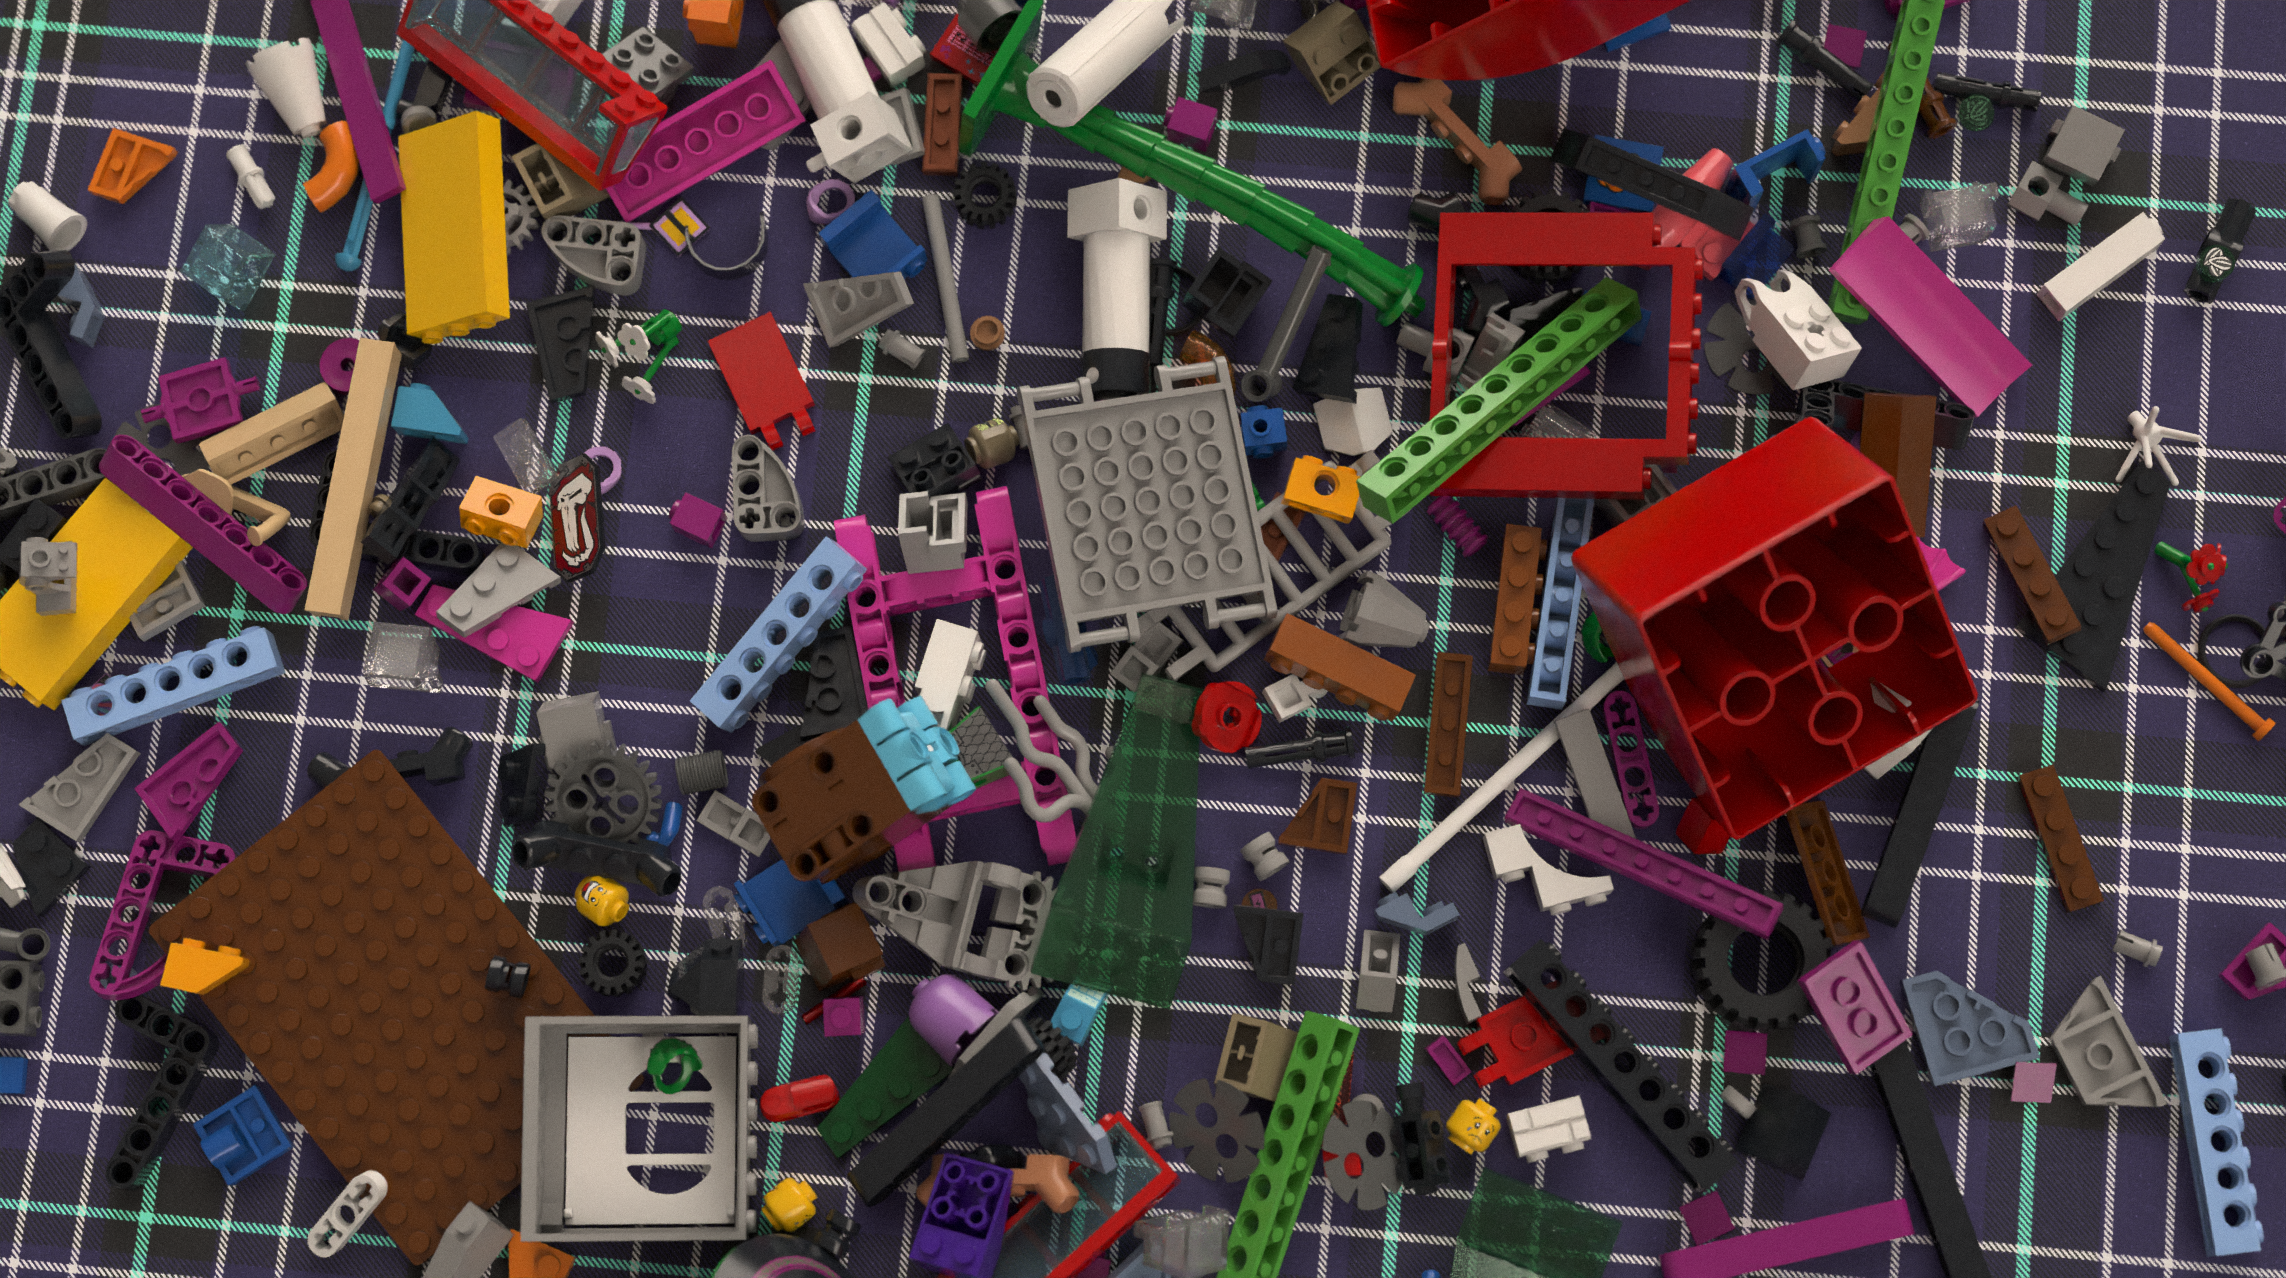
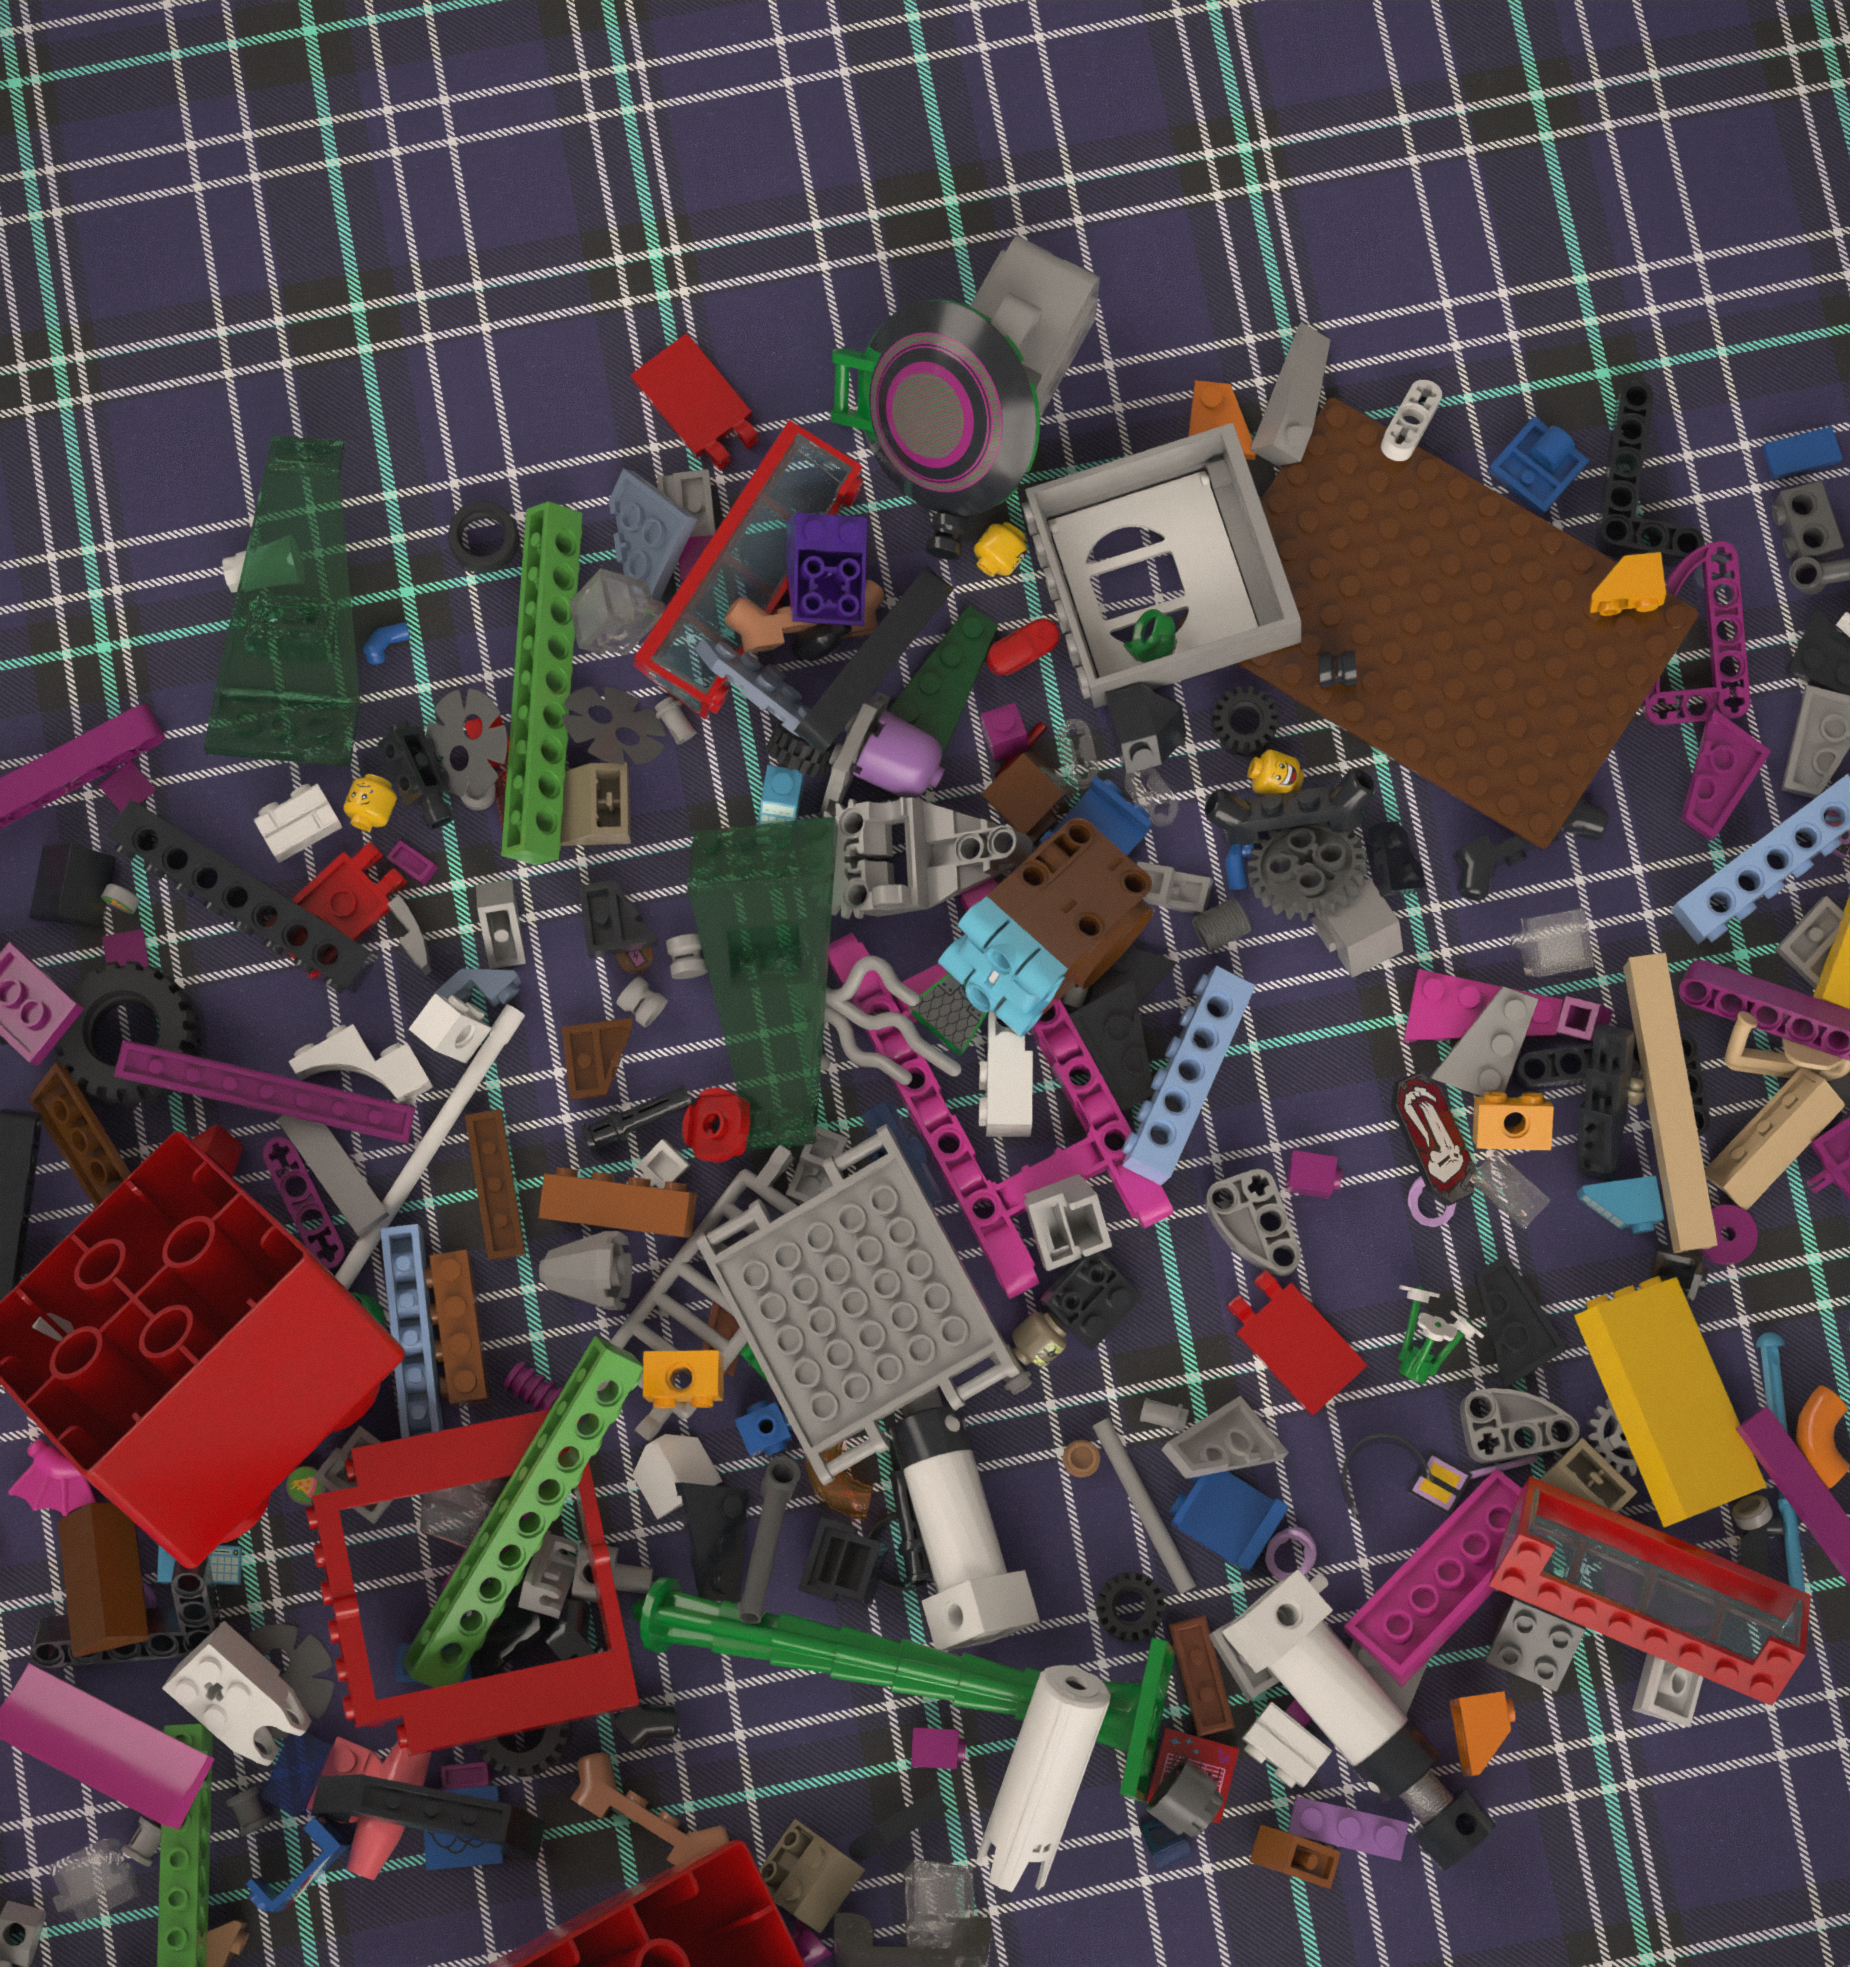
camera: 155 degrees right, 0 degrees up
(1451, 874) = (451, 1027): none -> white brick

